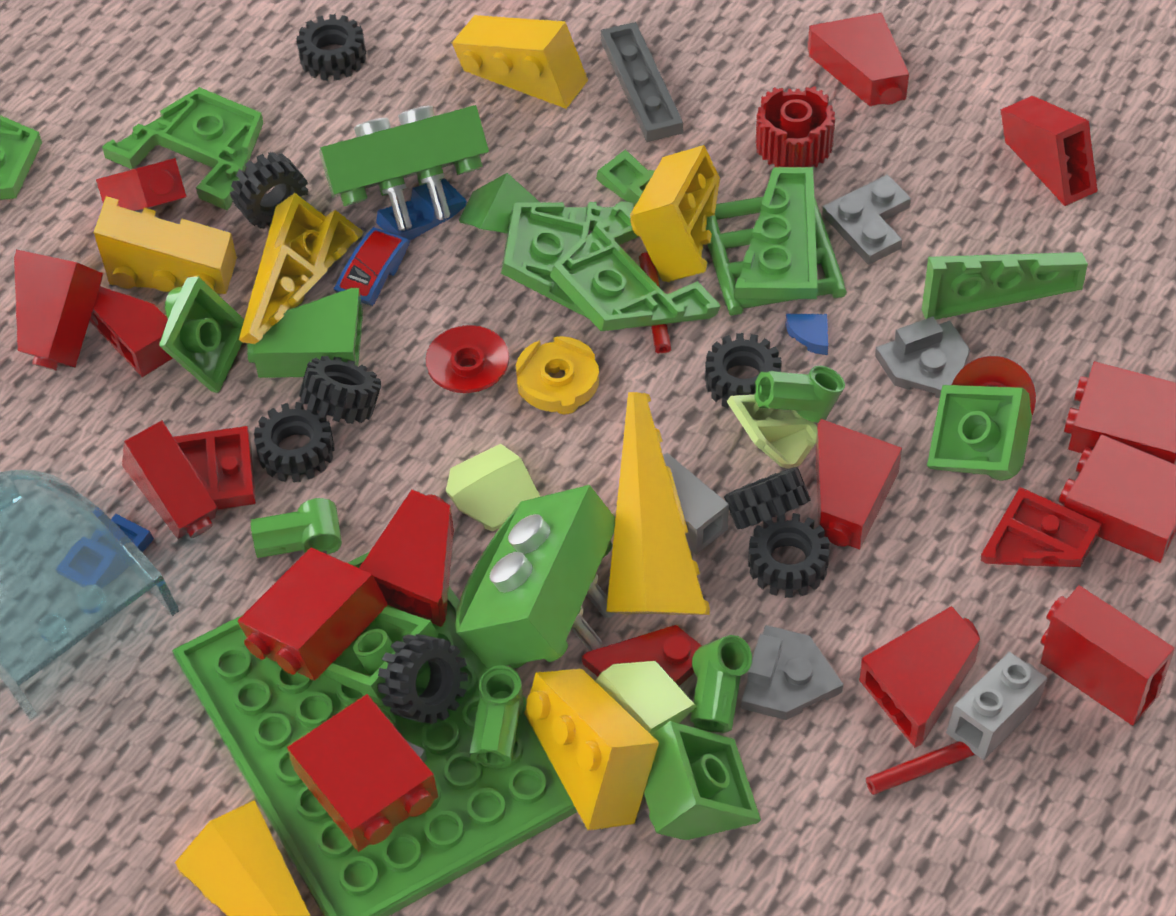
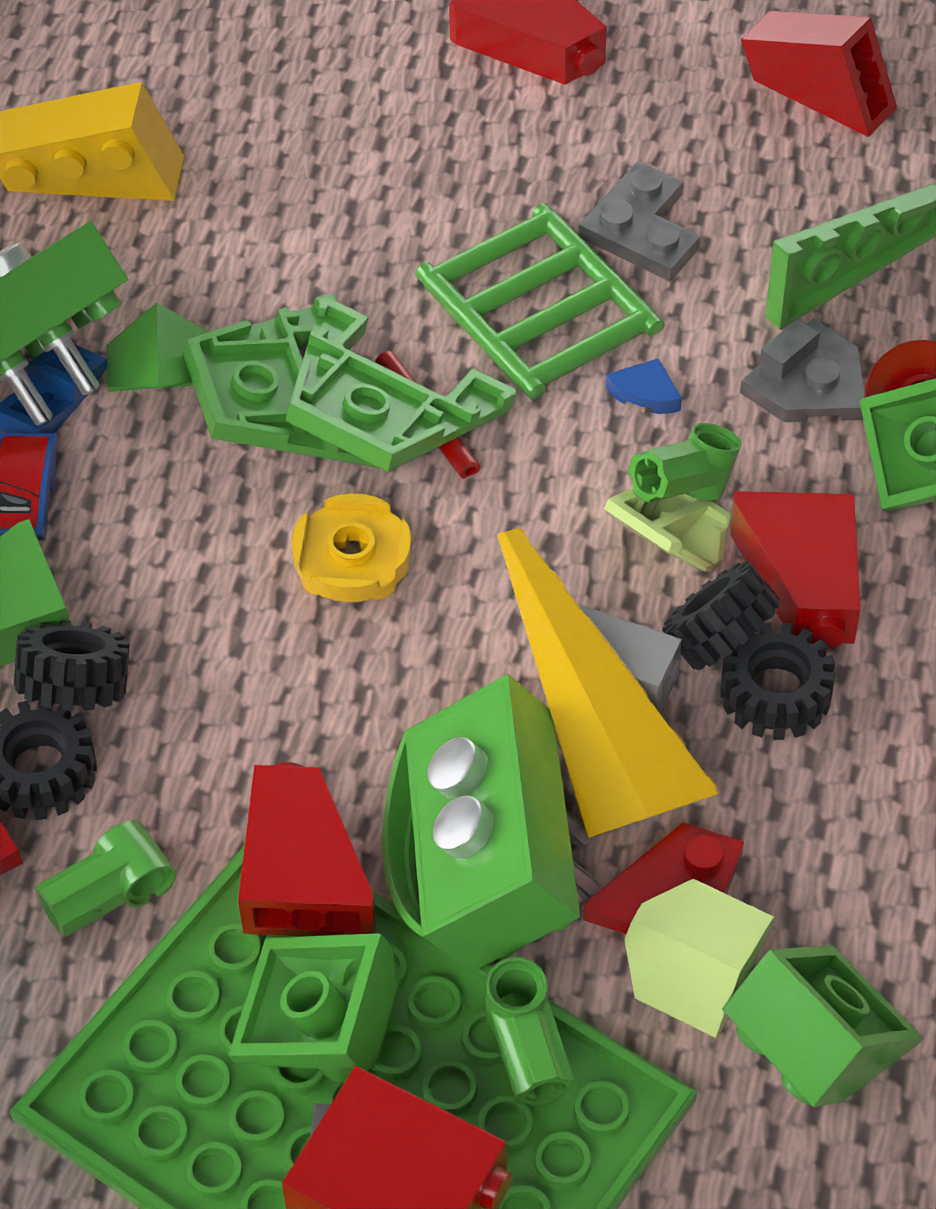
camera: 25 degrees left, 0 degrees up
(312, 614) = (201, 985): red brick -> none
(402, 674) = (406, 1016): black tyre -> none
(464, 347) = (218, 549): red dish -> none
(490, 486) = (342, 725): yellowish green slope -> none
(592, 746) = (671, 1021): yellow wedge -> none
(625, 176) = (313, 268): bright green slope -> none
(641, 82) = (261, 136): dark grey plate -> none
(675, 213) = (402, 290): yellow wedge -> none
(719, 682) = (775, 860): bright green piece -> none
(736, 354) = (581, 441): black tyre -> none
(783, 241) = (560, 283): bright green wing -> none
(787, 675) = (856, 835): flat silver plate -> none
(795, 127) = (497, 137): red brick -> none

